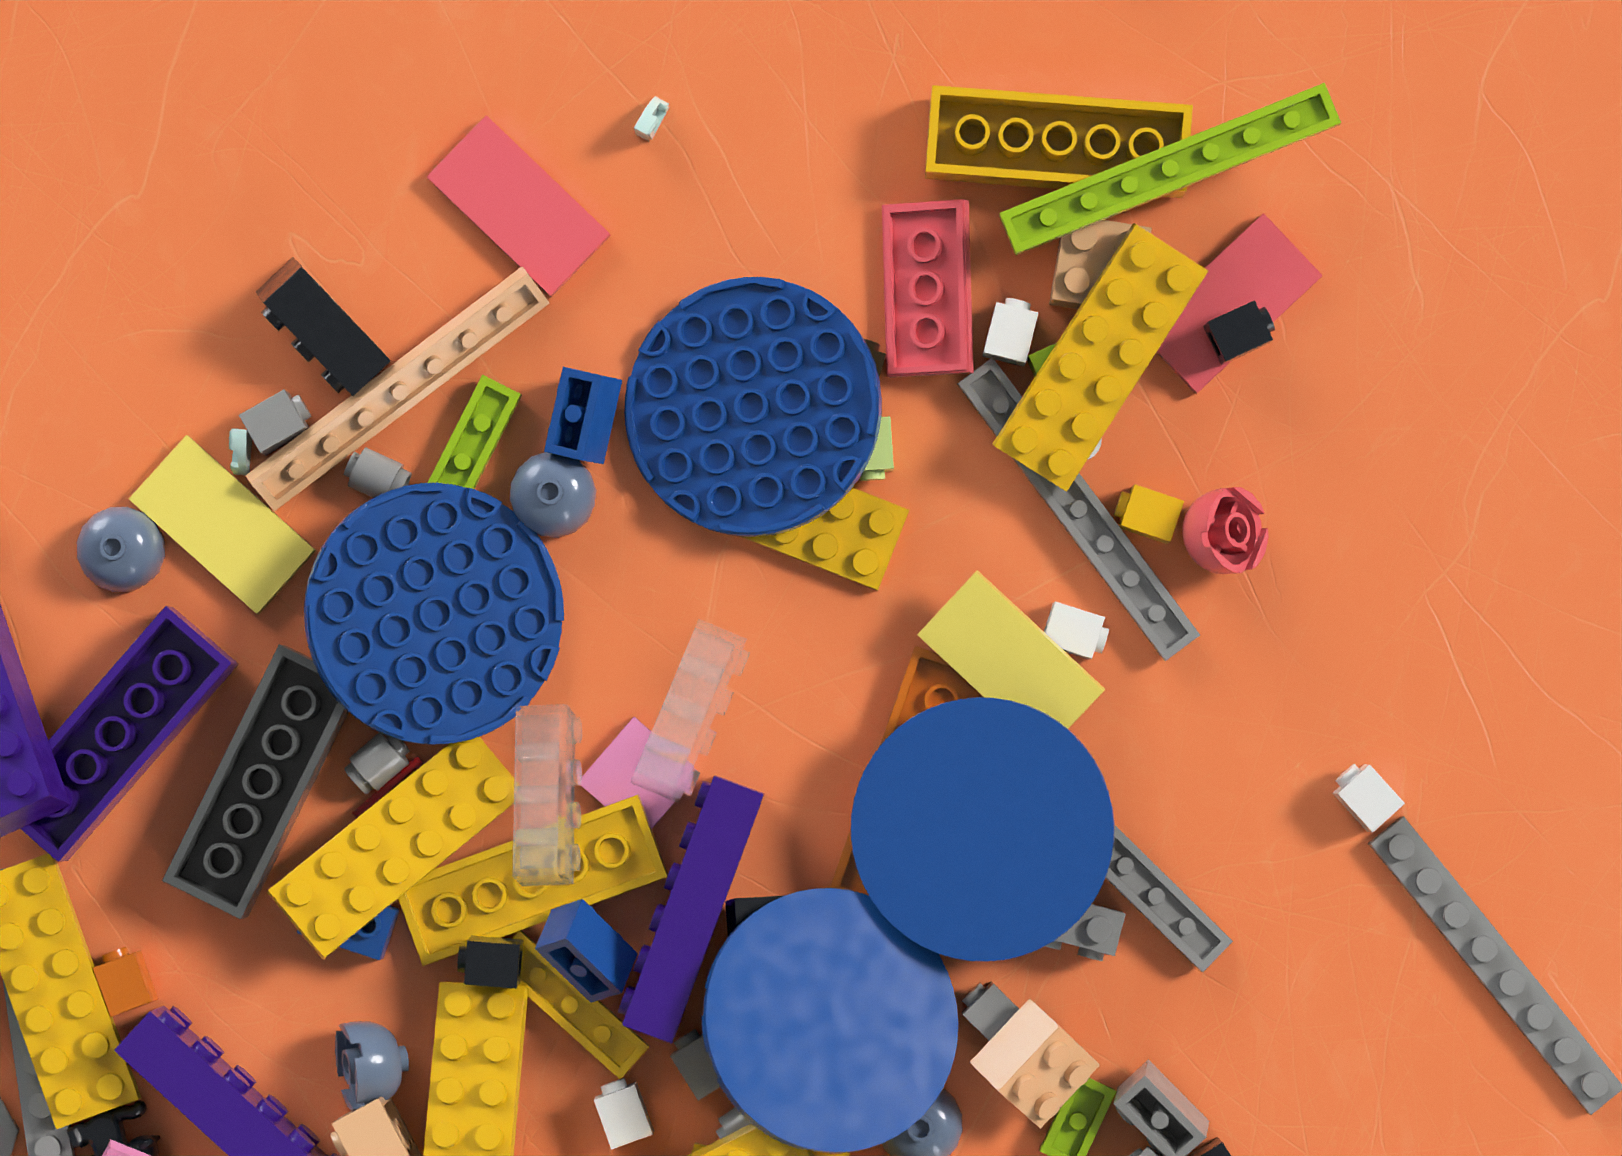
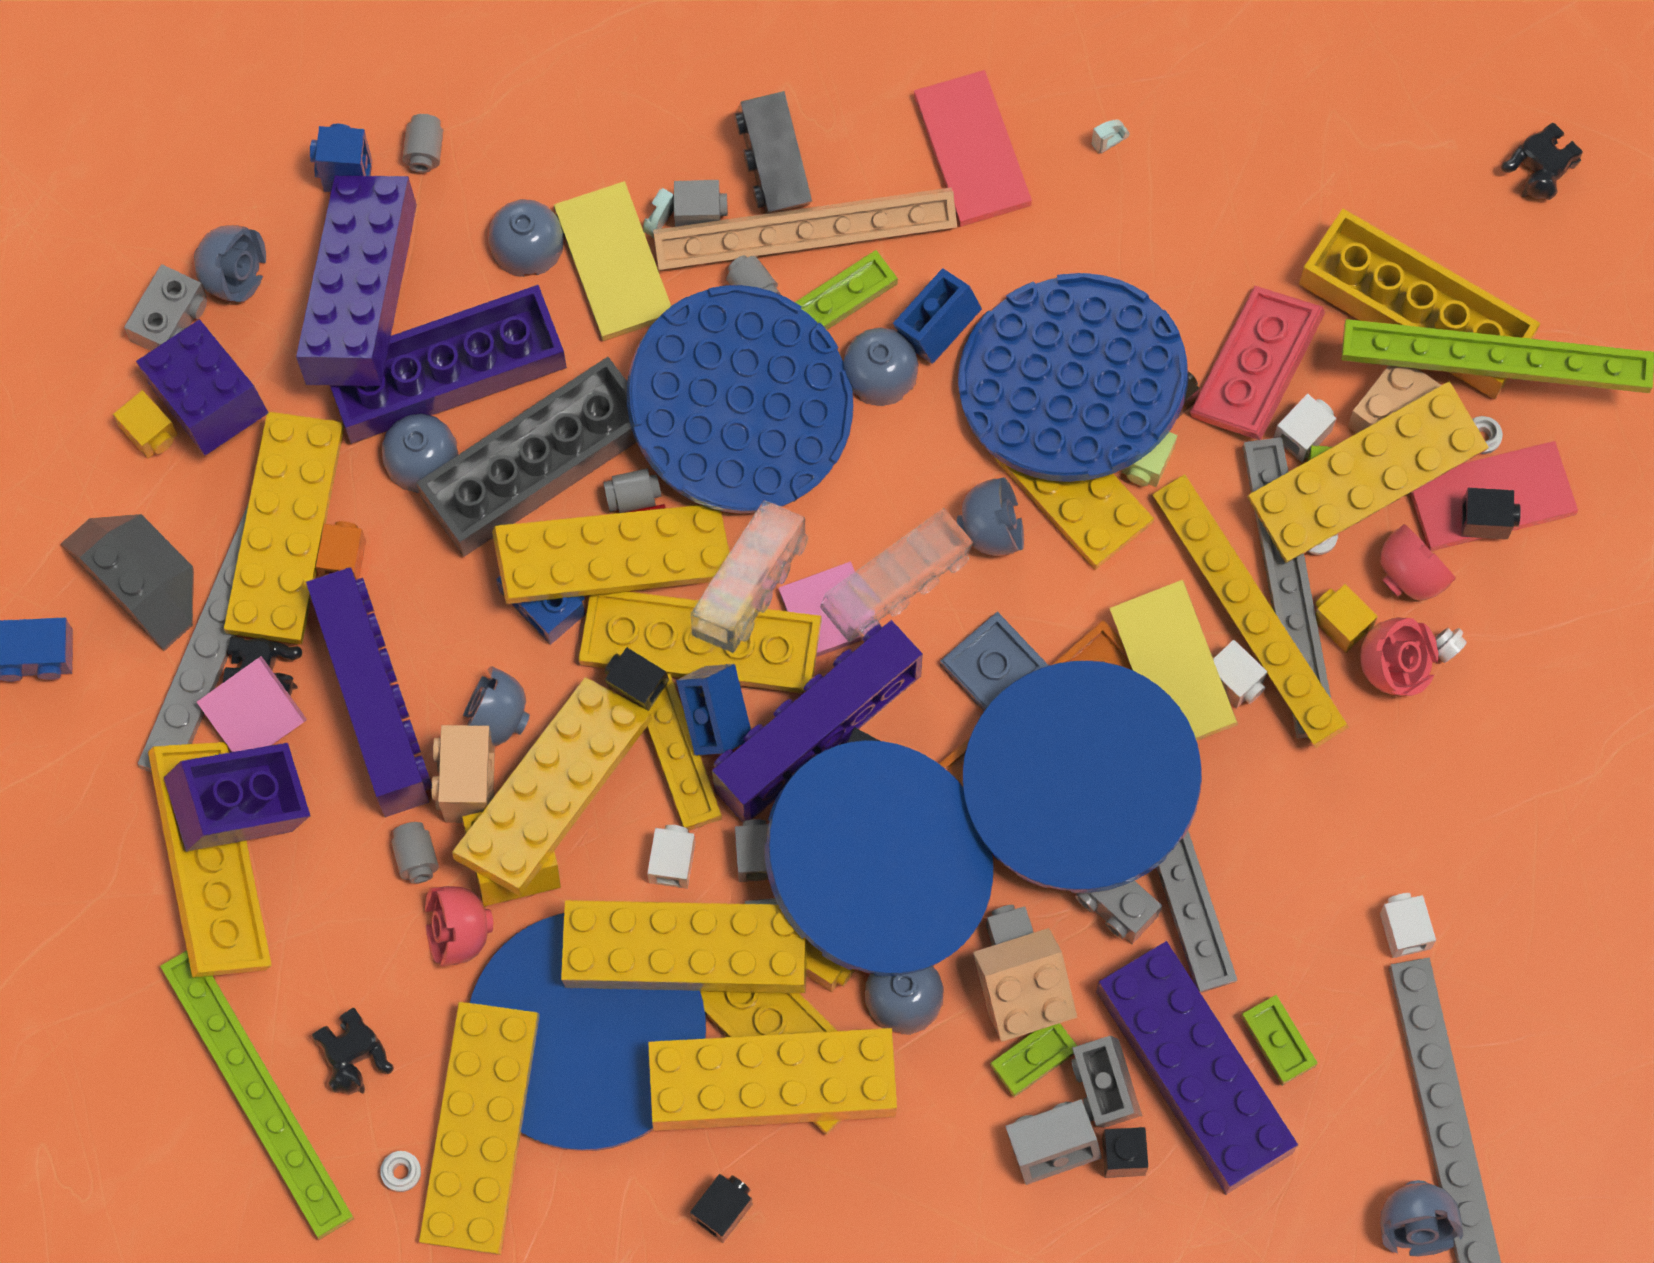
camera: 25 degrees right, 15 degrees down
(142, 833) = (416, 448): none -> sand blue cylinder
(751, 602) = (991, 518): none -> sand blue cylinder
(830, 744) = (991, 660): none -> sand blue tile
(1054, 558) = (1250, 611): none -> yellow plate
(1192, 426) = (1413, 566): none -> coral cylinder
(1198, 233) = (1492, 429): none -> white plate
(1238, 1050) = (1196, 1067): none -> dark purple brick
(1265, 485) = (1449, 643): none -> white plate
(1301, 976) = (1279, 1040): none -> lime plate
(1523, 1081) = (1420, 1219): none -> sand blue cylinder

